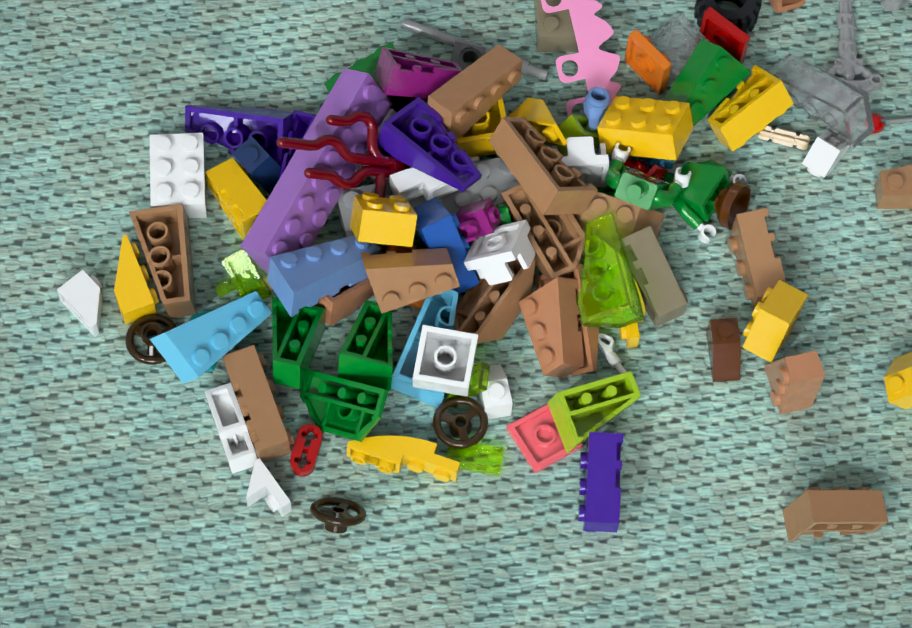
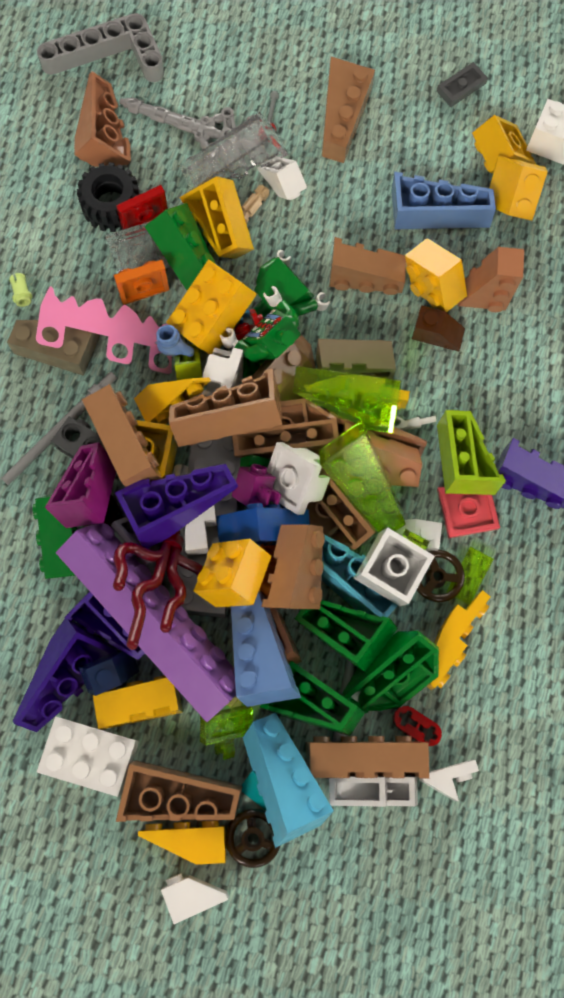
camera: 70 degrees left, 10 degrees up
(336, 517) = (498, 721): dark brown piece -> none
(522, 312) = (361, 476): none -> clear neon green wedge
(730, 202) = (306, 269): reddish brown piece -> none
(864, 306) = (440, 205): none -> medium blue wedge

